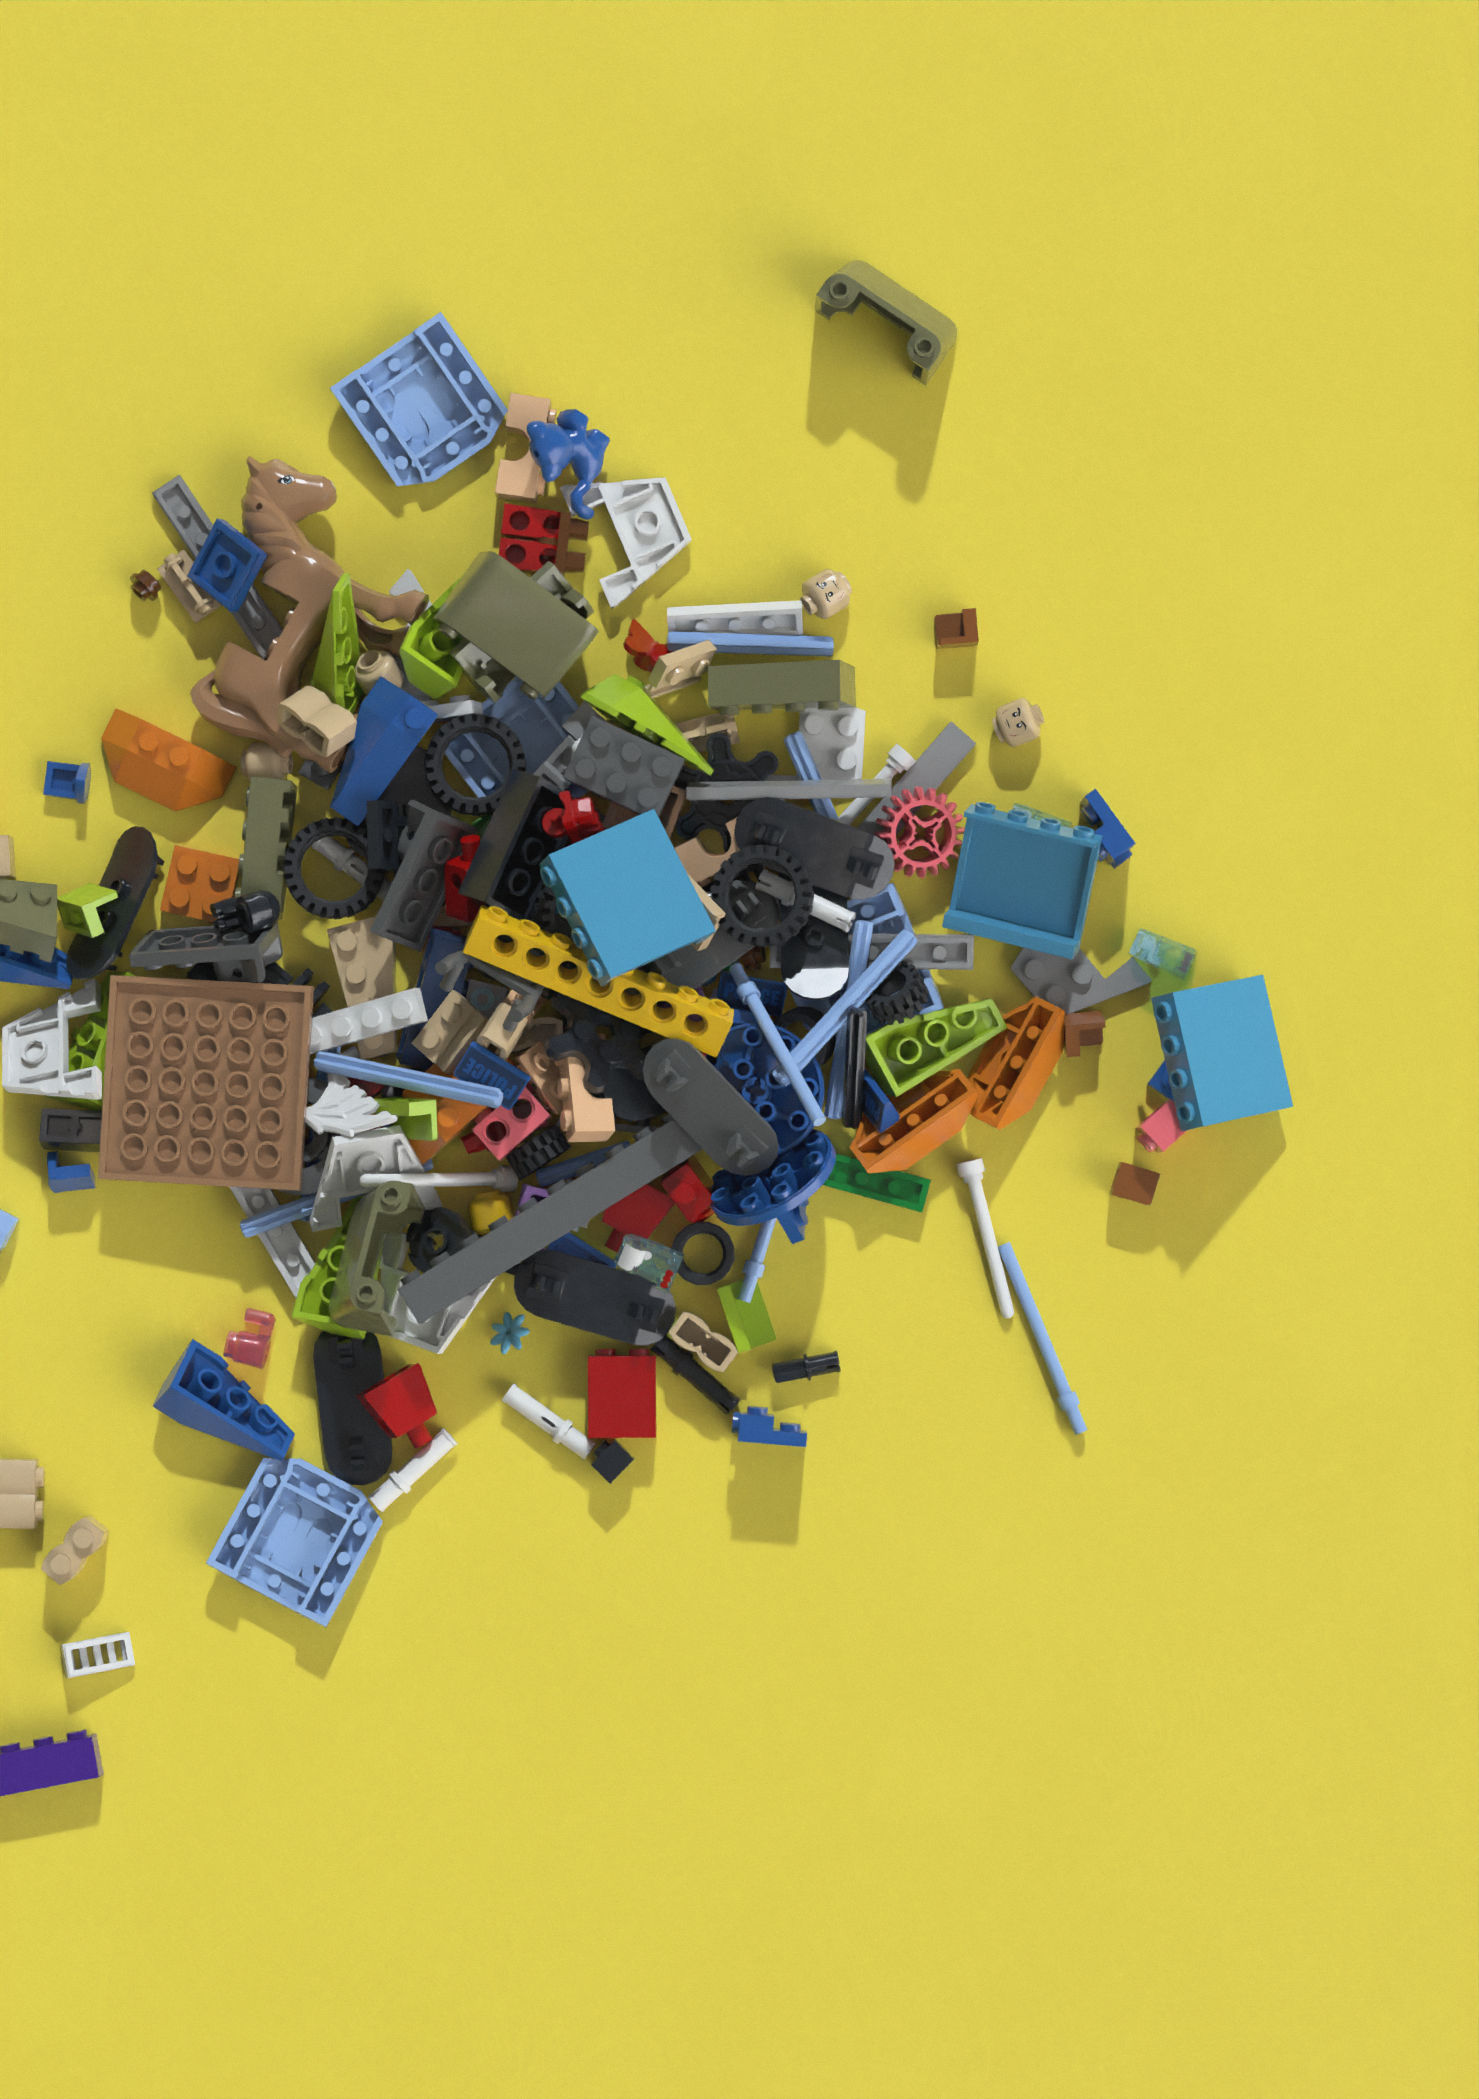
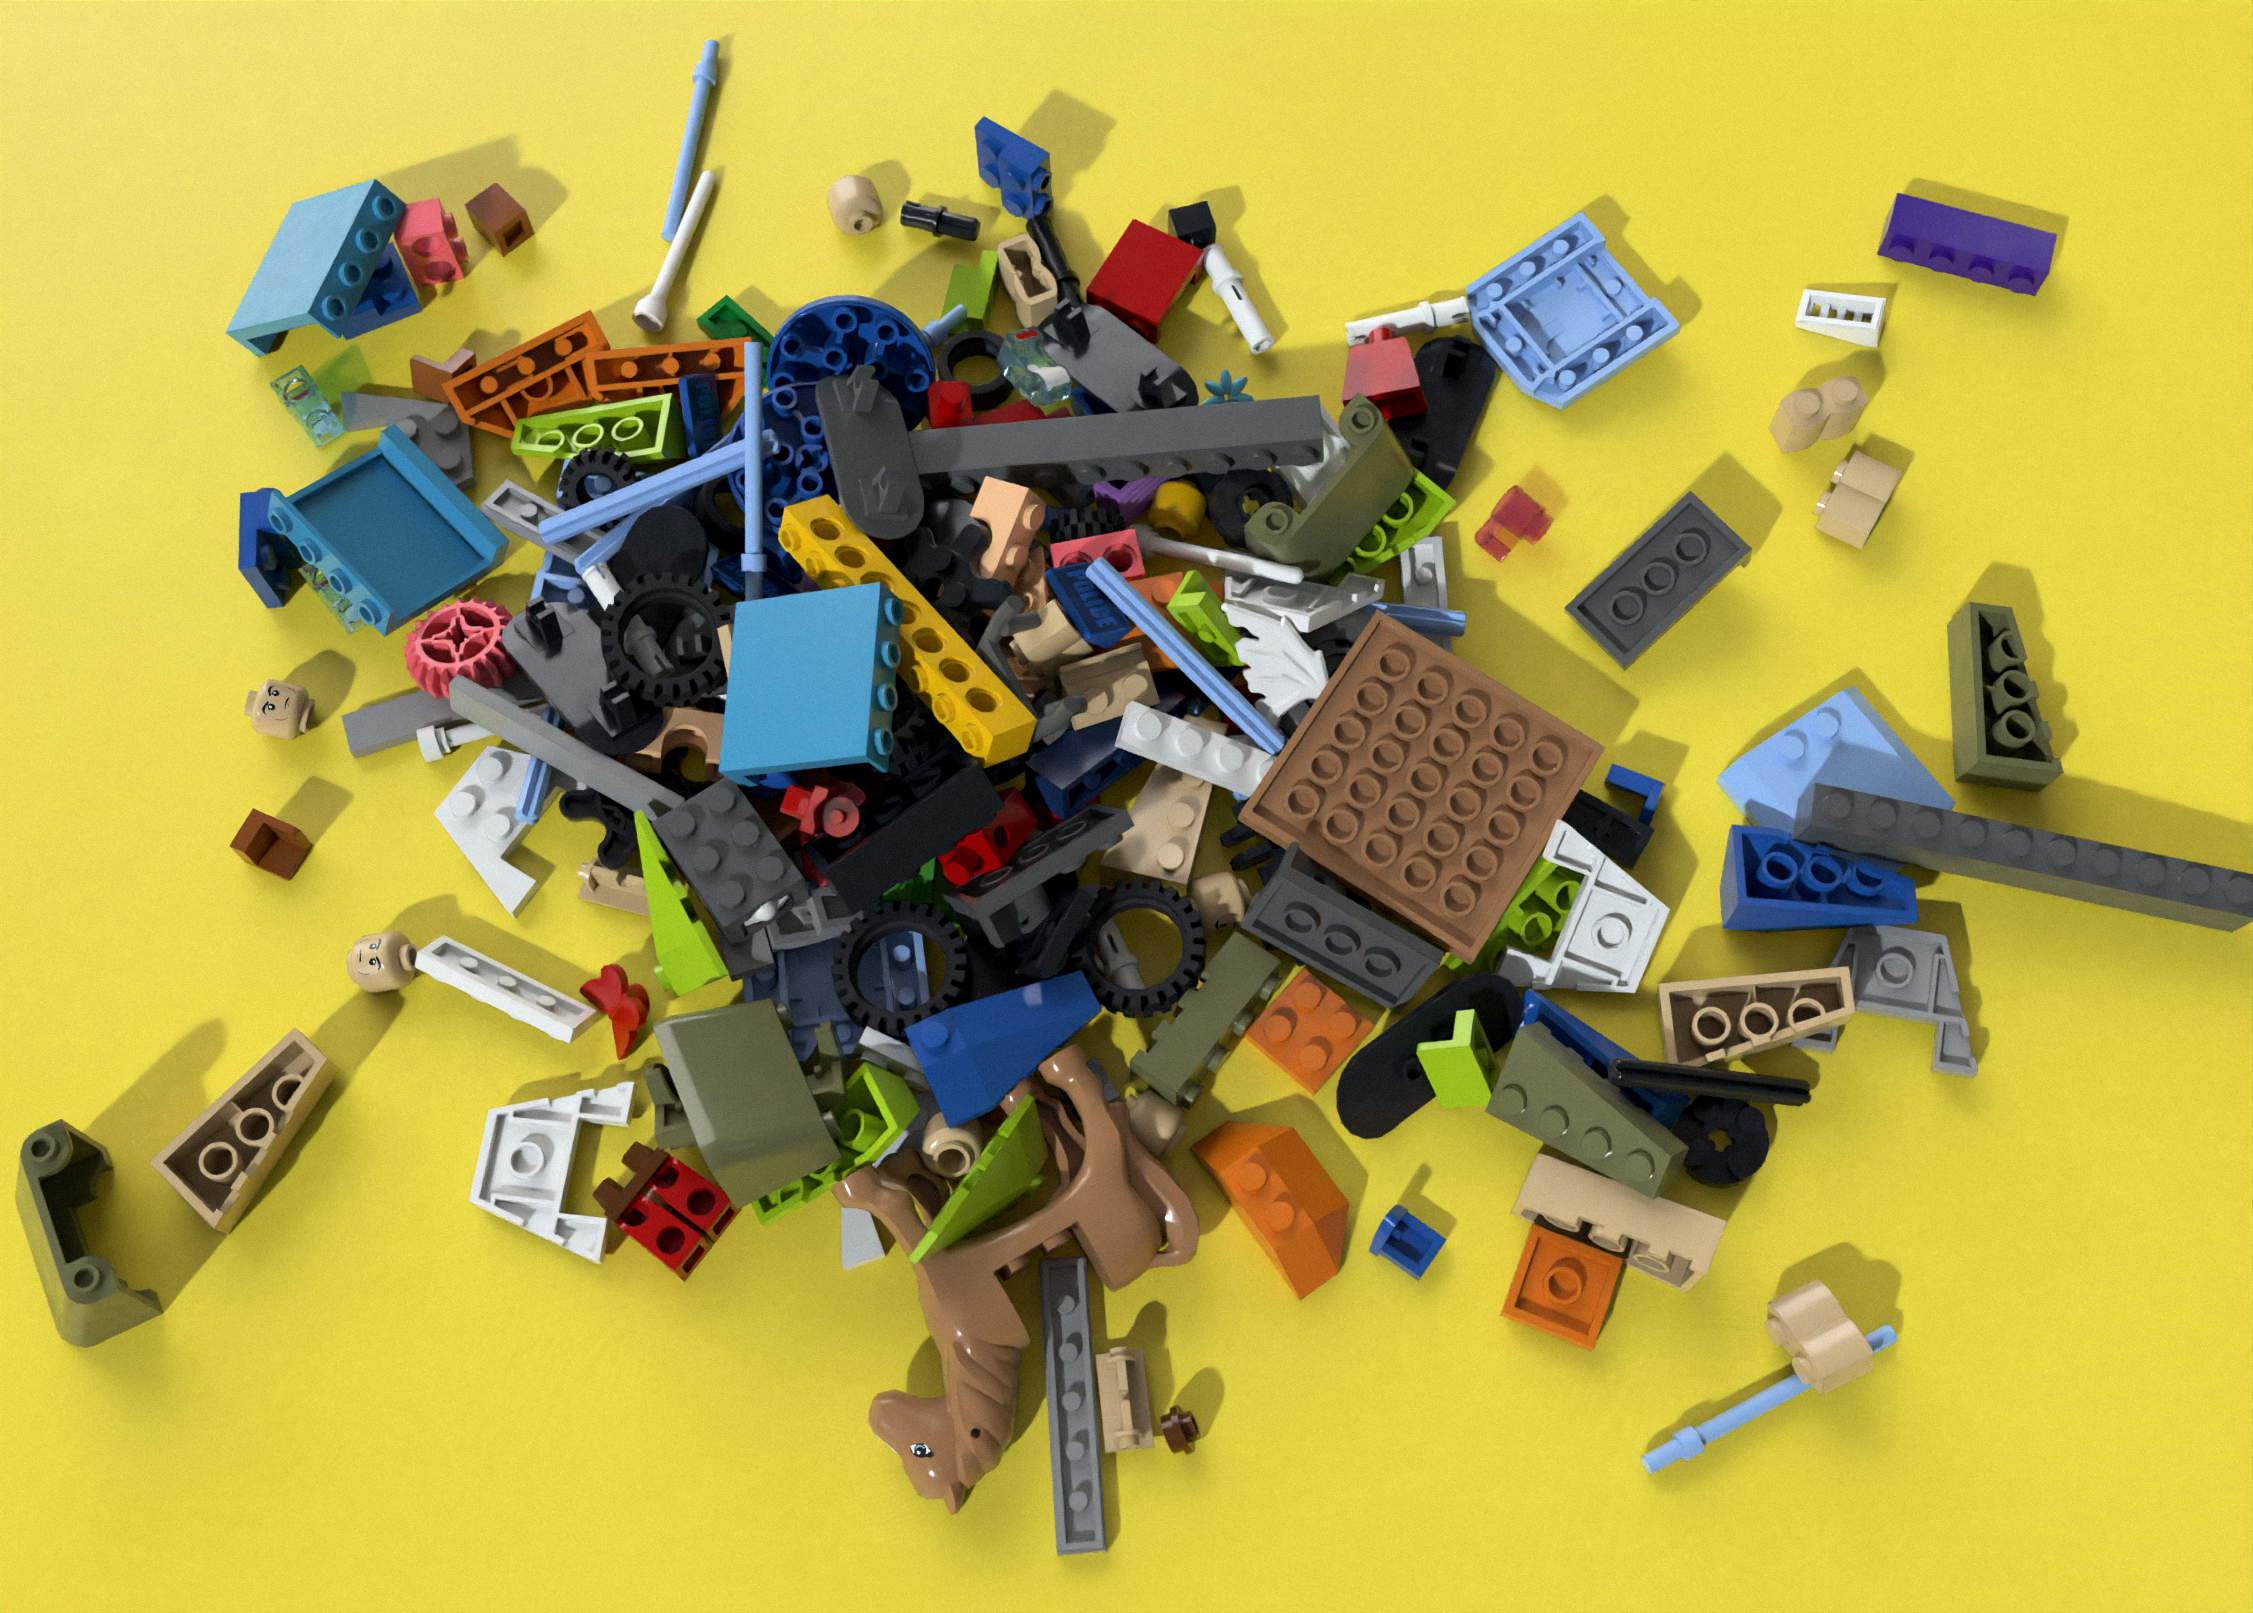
camera: 155 degrees left, 20 degrees down
(125, 1340) = (1658, 580): none -> dark grey plate
(214, 1402) = (1587, 485): blue wedge -> none
(227, 565) = (1060, 1385): blue tile -> none
(251, 911) = (1262, 940): black piece -> none
(305, 937) = (1219, 901): none -> tan head
(316, 721) = (1056, 1103): tan brick -> none
(422, 404) = (697, 1468): light blue wedge -> none
(522, 478) = (578, 1362): light nougat arch -> none
(569, 442) = (552, 1292): blue animal -> none
(680, 669) = (604, 950): tan plate -> none
(755, 643) = (507, 955): light blue axle -> none
(781, 686) = (499, 872): olive wedge -> none
(833, 437) = (244, 1133): none -> tan wedge
(854, 1068) = (690, 440): black axle -> none
(877, 1343) = (854, 205): none -> tan head

